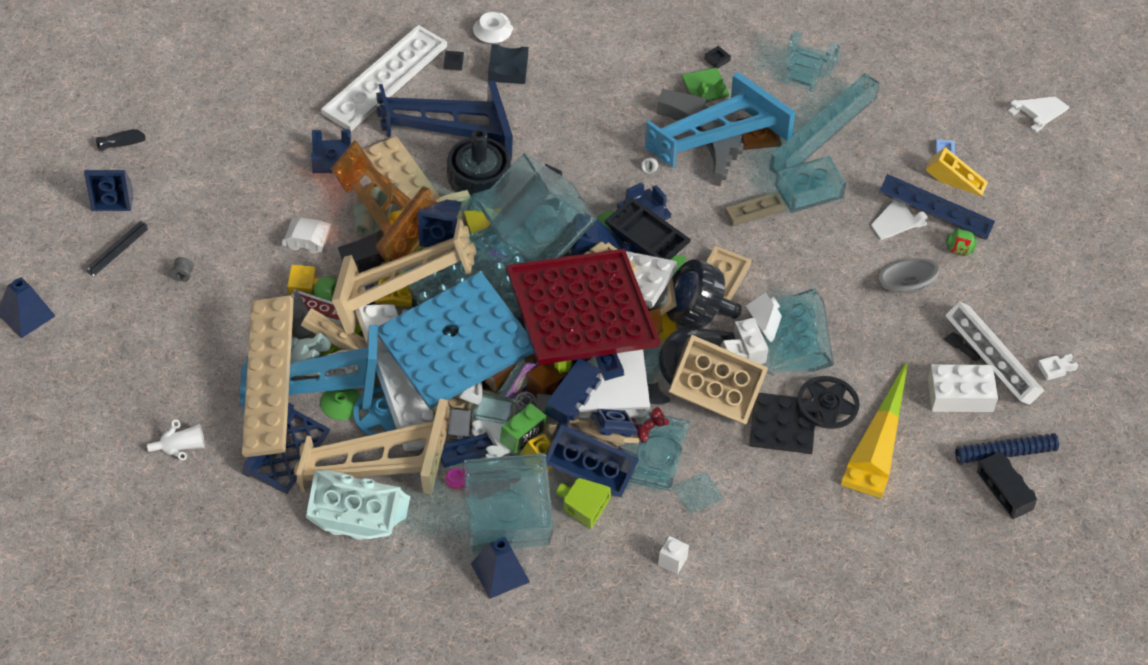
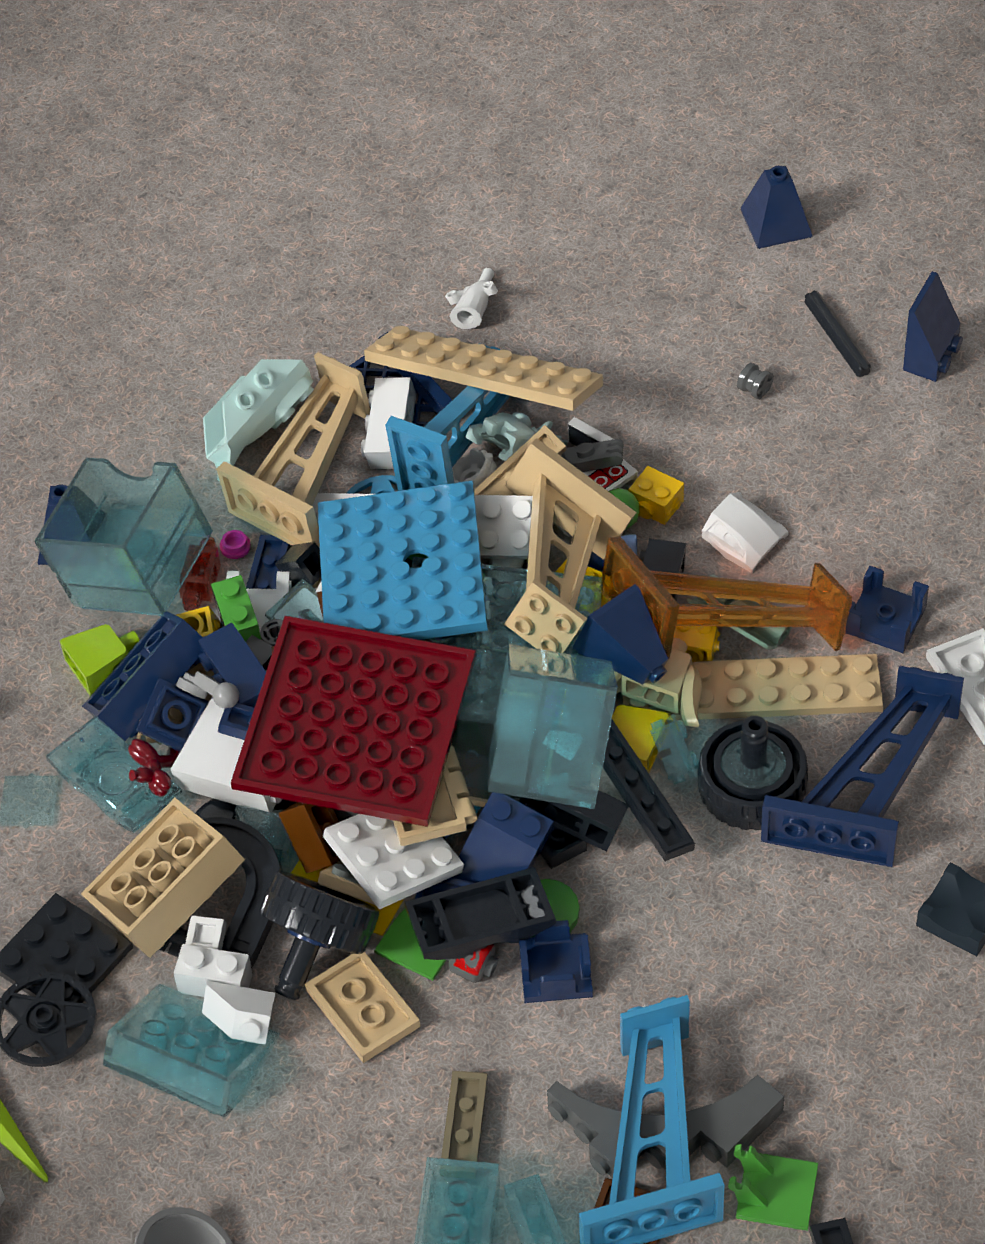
camera: 125 degrees right, 0 degrees up
(323, 429) = (389, 398): none -> white brick
(593, 413) = (224, 694): none -> light grey piece

